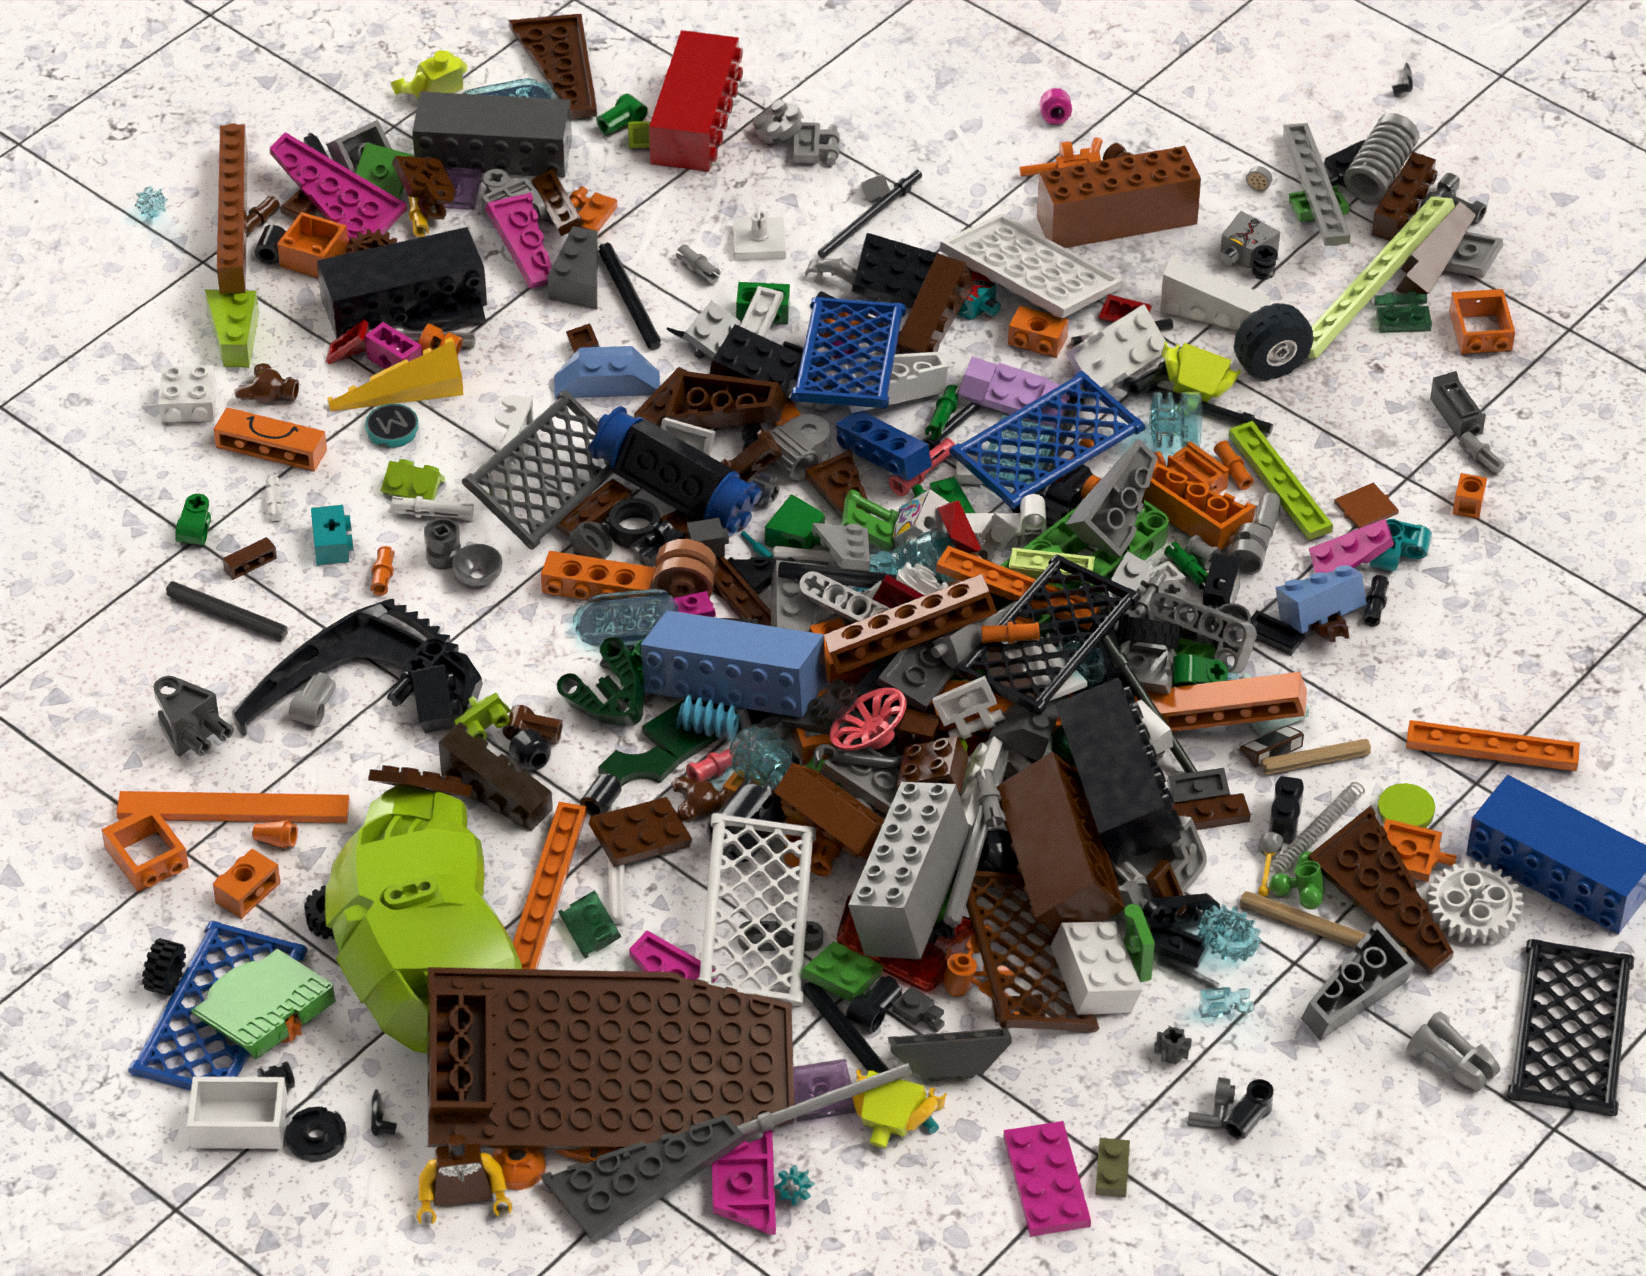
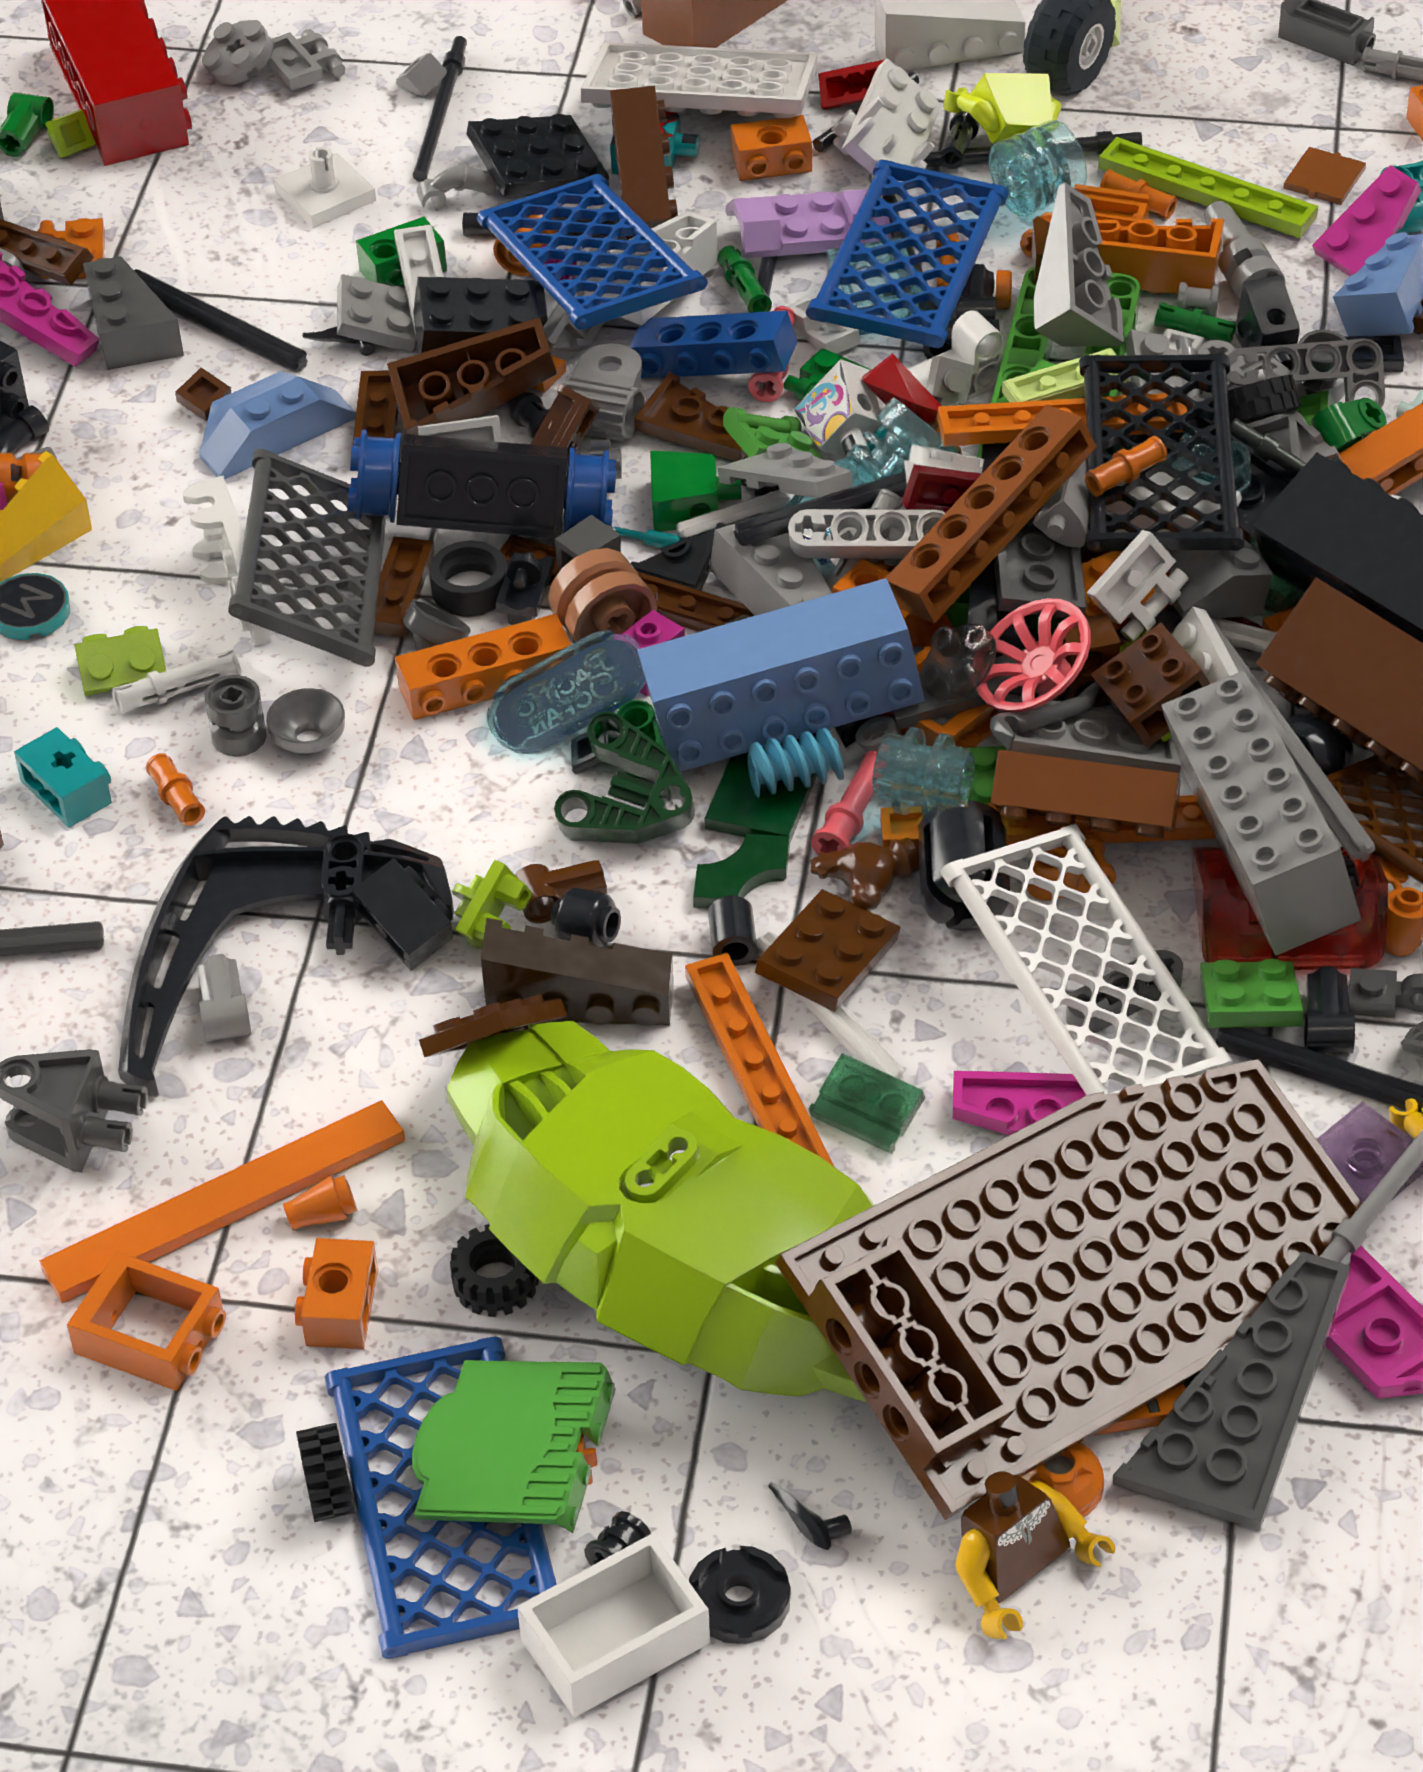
camera: 30 degrees left, 0 degrees up
(698, 263) = (275, 247): light grey pin -> none
(989, 798) = (1265, 679): light grey pin -> none

